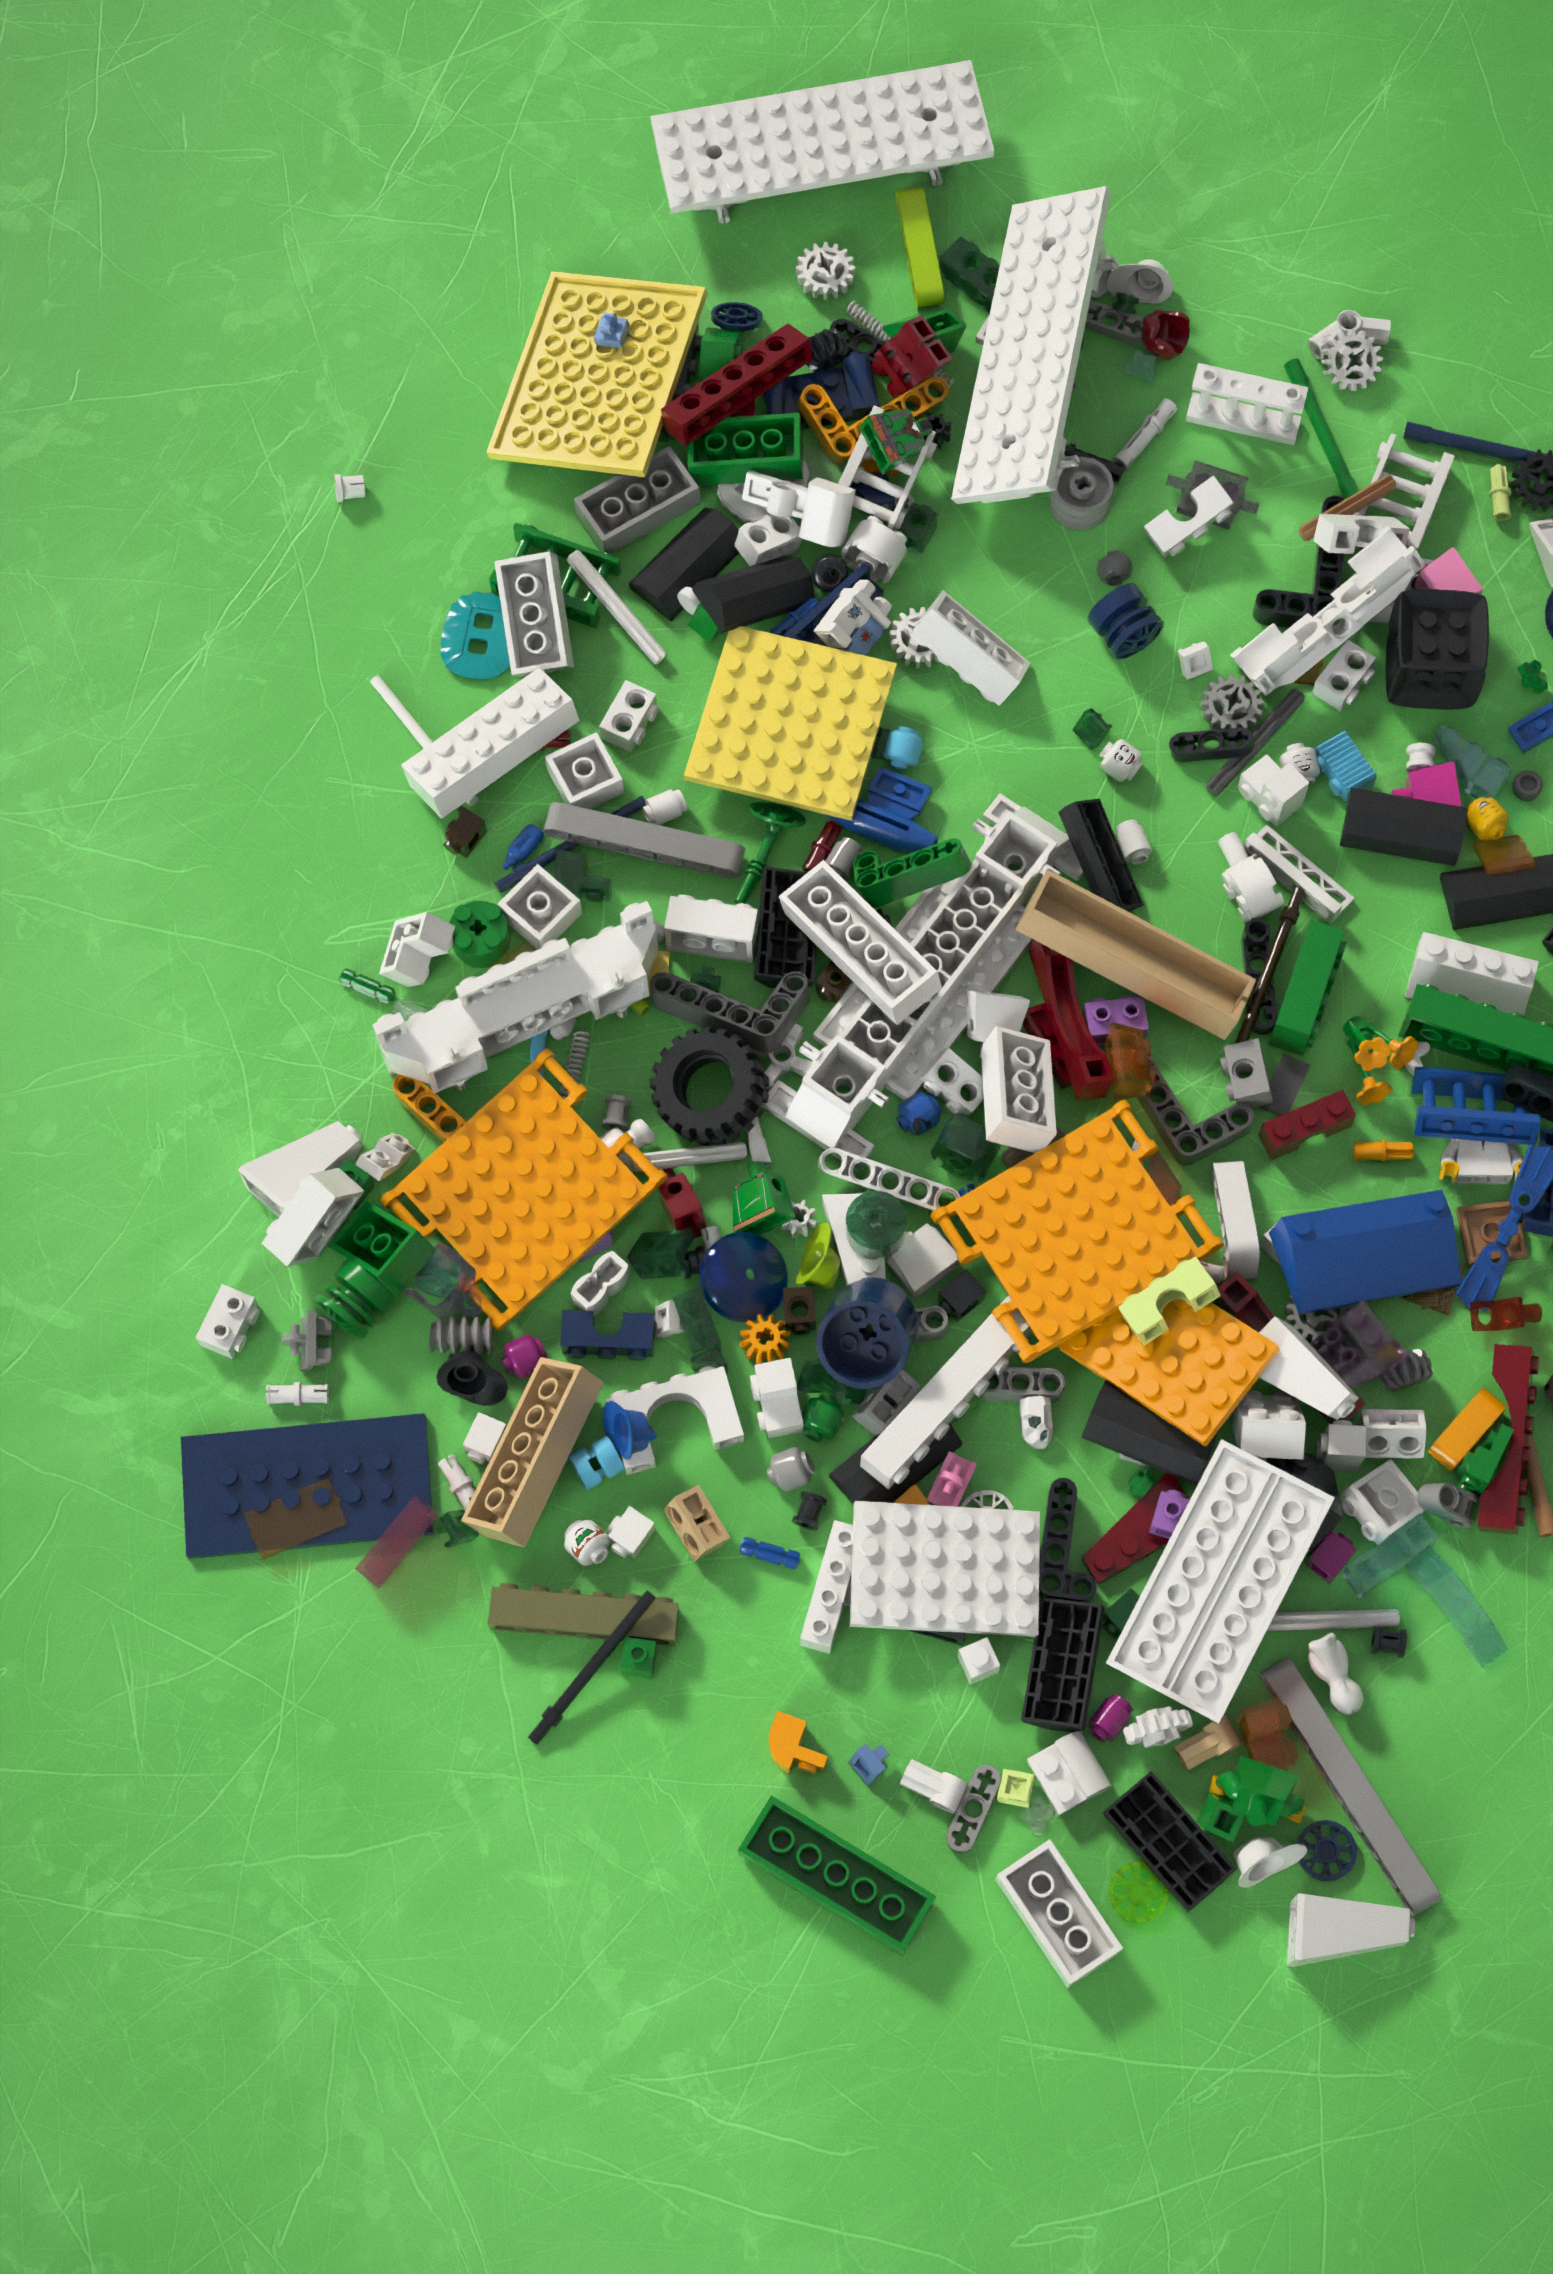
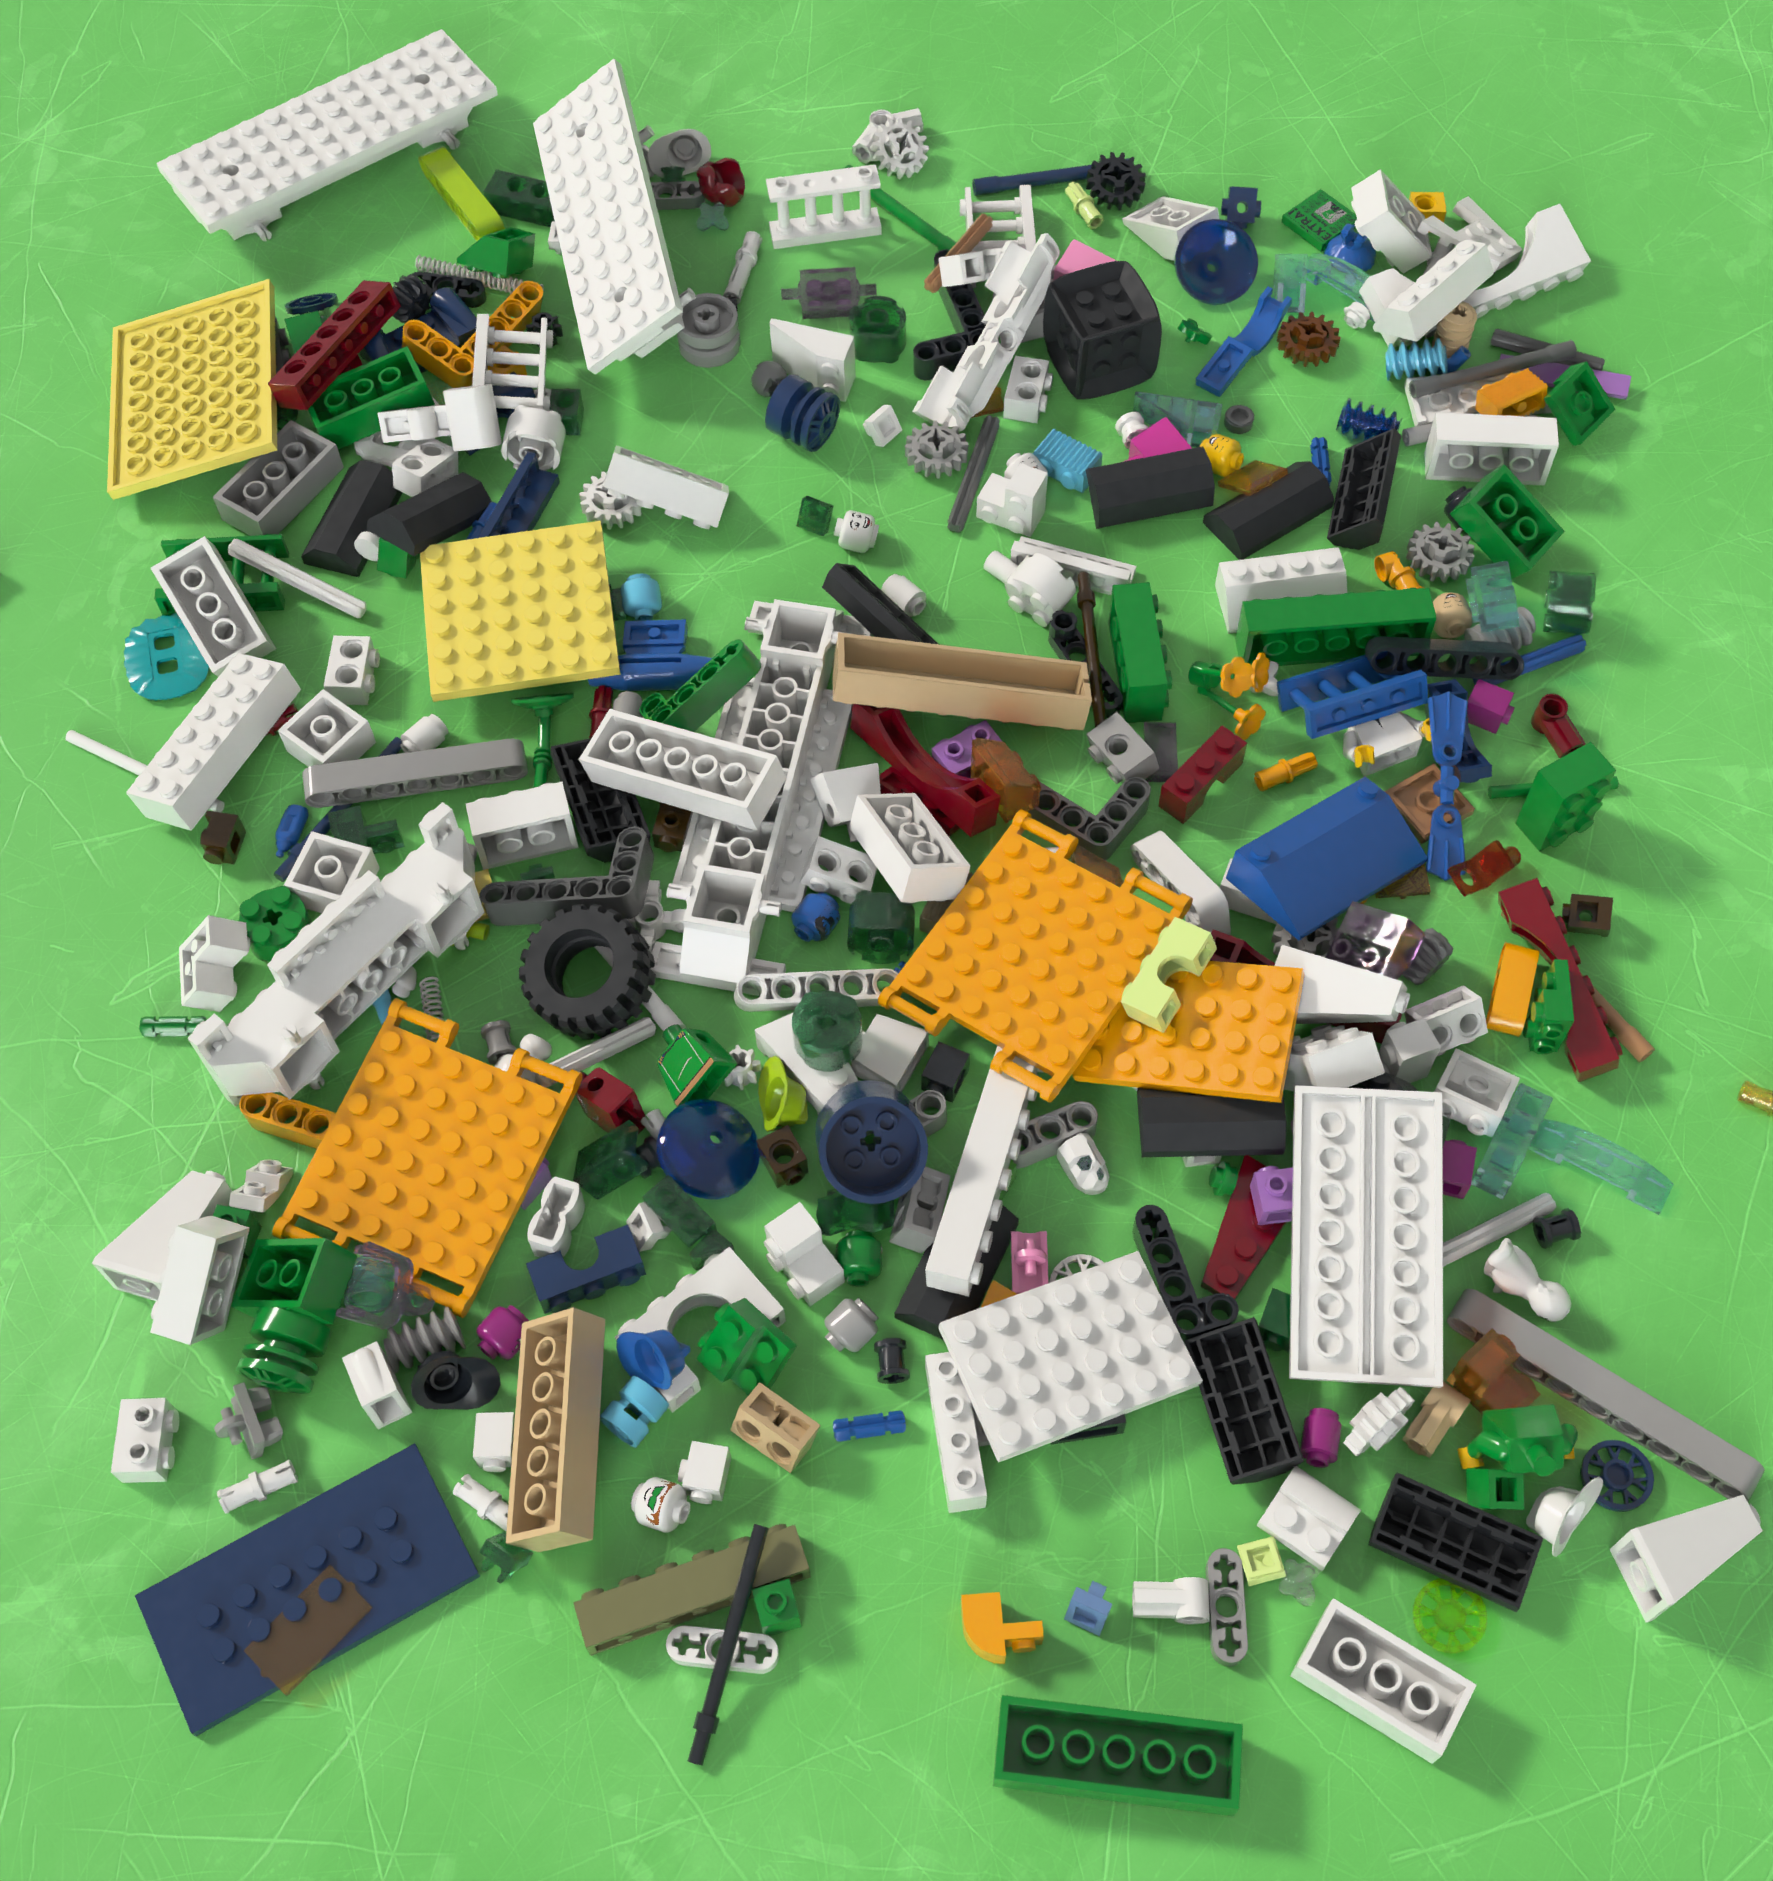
camera: 25 degrees left, 10 degrees down
(397, 1541) = (440, 1600): clear pink brick -> none
(413, 1357) = (376, 1385): none -> white torso
(563, 1664) = (692, 1655): none -> white beam
(611, 331) = (191, 344): medium blue tile -> none
(700, 1451) = (745, 1347): none -> green plate
(758, 1332) = (747, 1200): light orange gear -> none
(825, 271) = (381, 241): white gear -> none
(829, 562) = (503, 466): black head -> none
(855, 619) = (541, 500): white hips -> none
(894, 437) = (508, 330): torso -> none
(909, 357) = (493, 268): dark red hips -> none
(978, 1661) = (1151, 1439): white brick -> none
(1165, 568) = (815, 355): none -> white slope
(1171, 535) = (834, 293): white arch -> none
(1201, 737) = (949, 472): black beam -> none
(1236, 557) = (878, 329): none -> clear green brick
(1448, 1503) = (1536, 1065): light grey piece -> none

